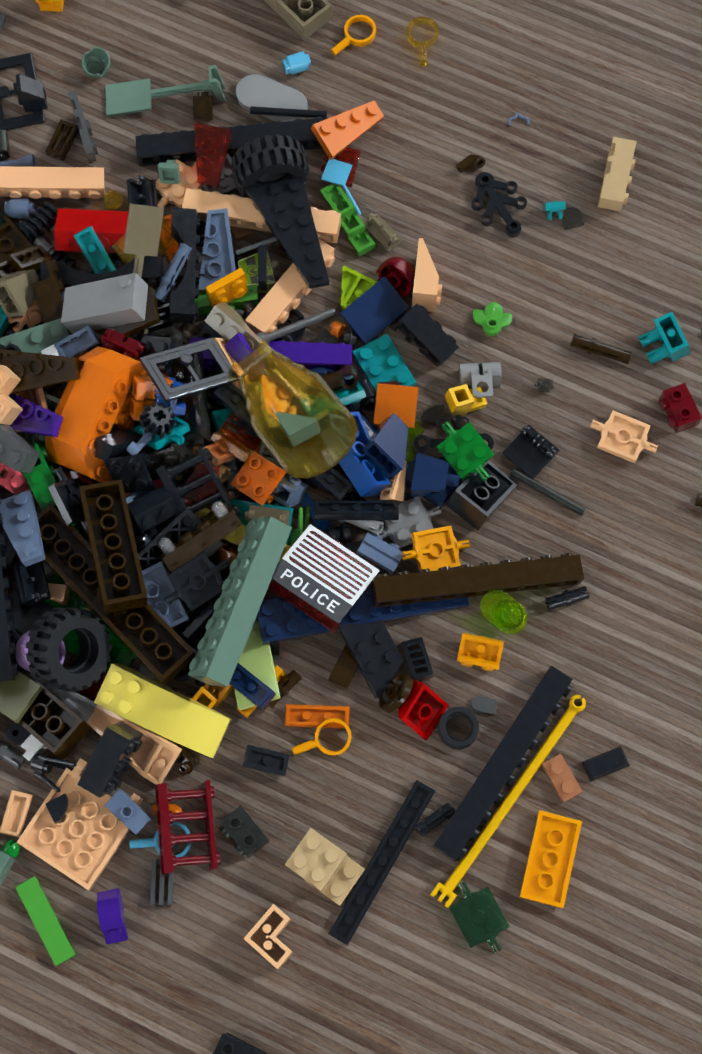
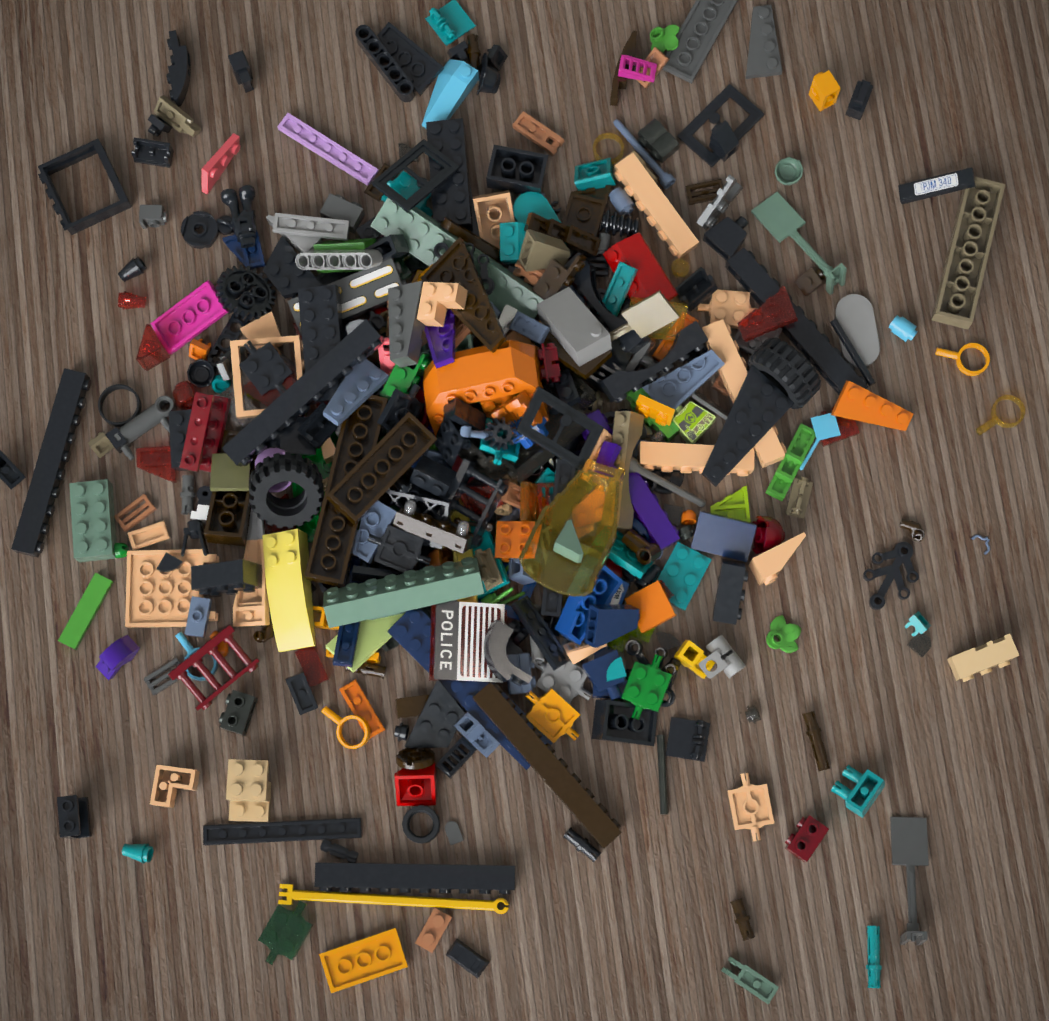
camera: 60 degrees right, 5 degrees up
(115, 146) = (727, 236): none -> black torso
(169, 172) = (729, 295): sand green tile -> none
(172, 272) = (631, 360): sand blue pin -> none
(243, 735) = (312, 666): none -> clear red tile
(262, 267) = (696, 424): black tile -> none
(314, 1012) = (138, 852): none -> teal cone
(354, 557) = (496, 656): none -> arch
(362, 692) = (401, 732): none -> black plate
(408, 627) = (476, 734): none -> sand blue brick
(435, 463) = (616, 670): none -> teal tile
(480, 652) = (492, 803): light orange bracket -> none
(503, 611) = (535, 801): clear neon green piece -> none

